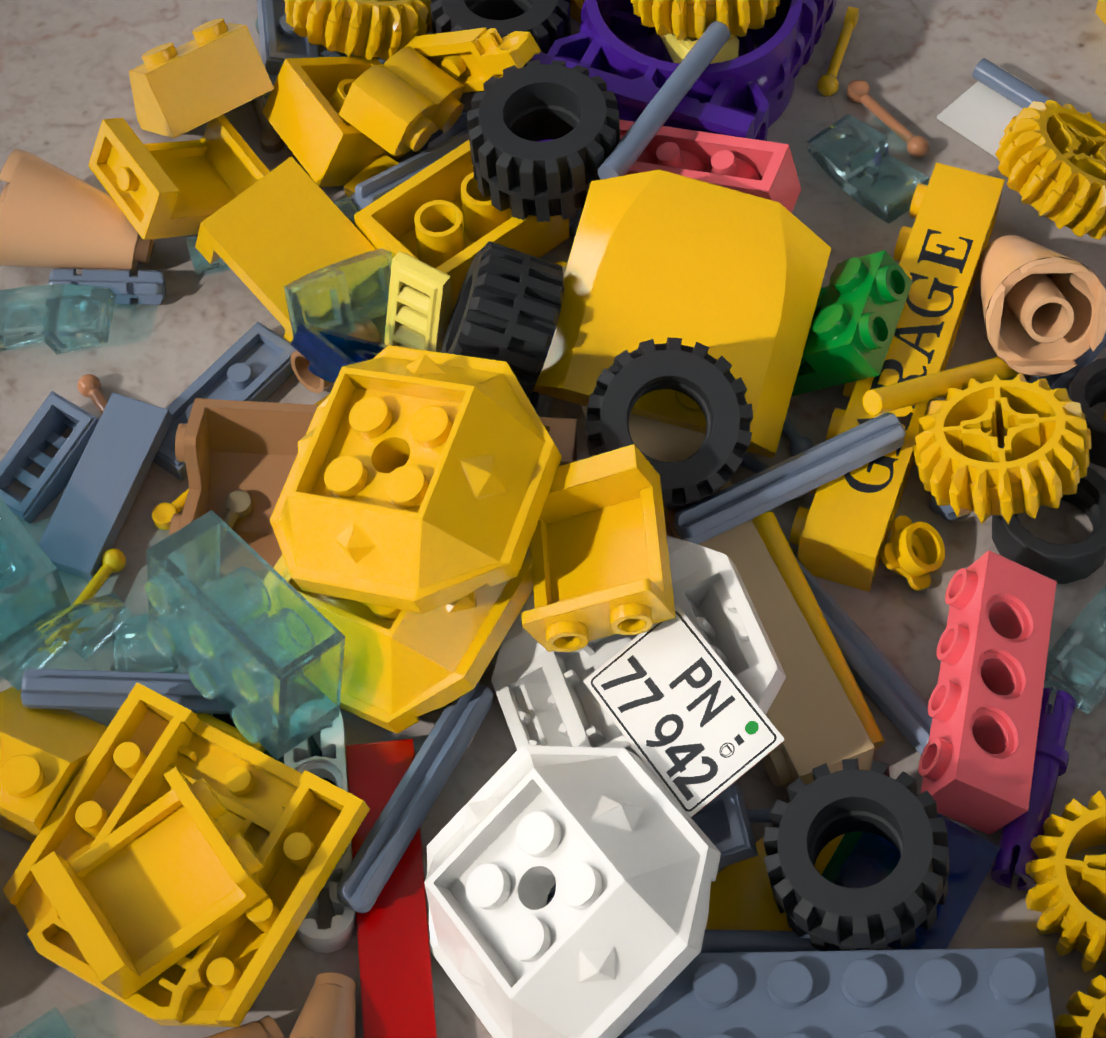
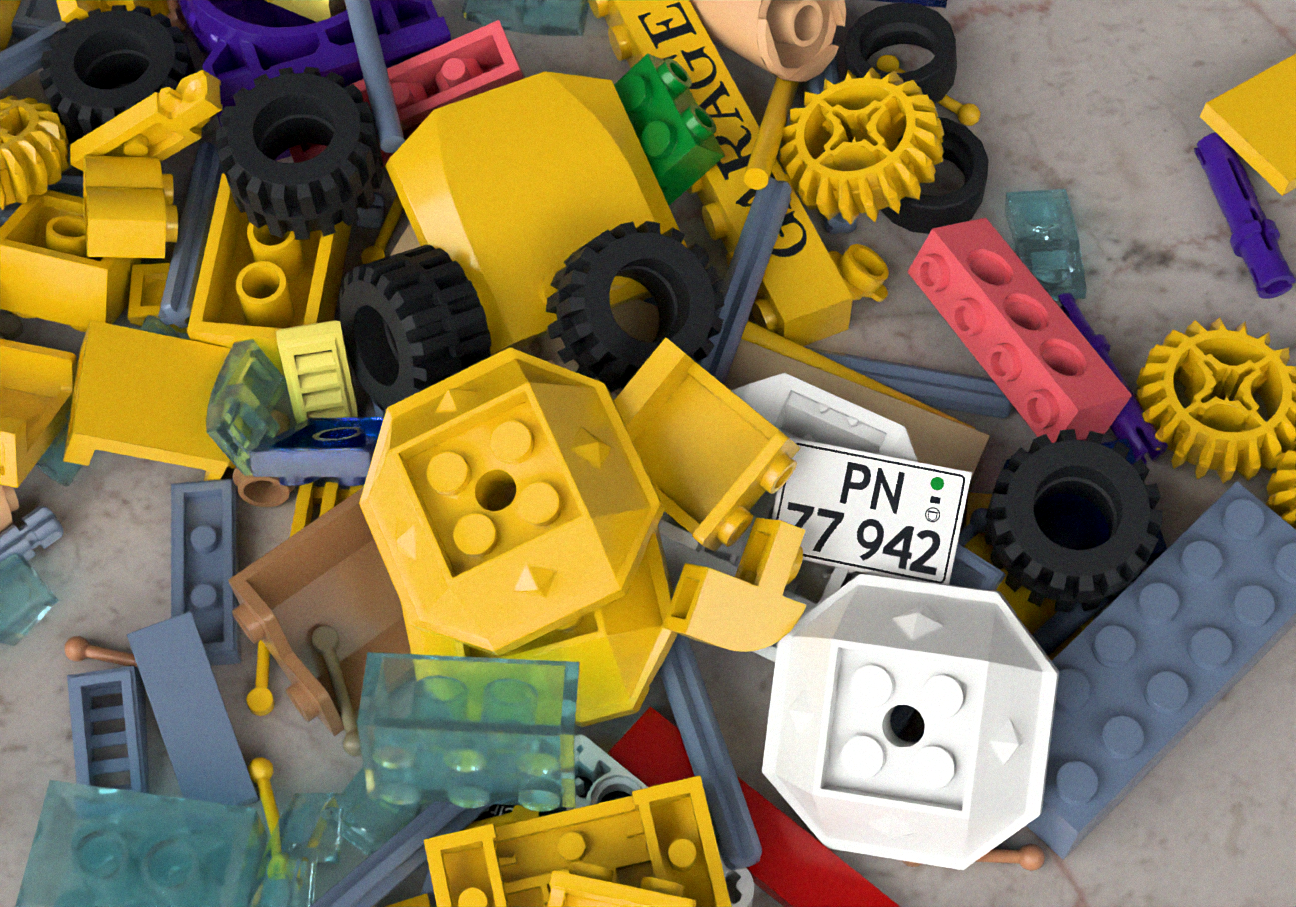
camera: 45 degrees left, 5 degrees up
(506, 703) = (744, 609): none -> yellow brick

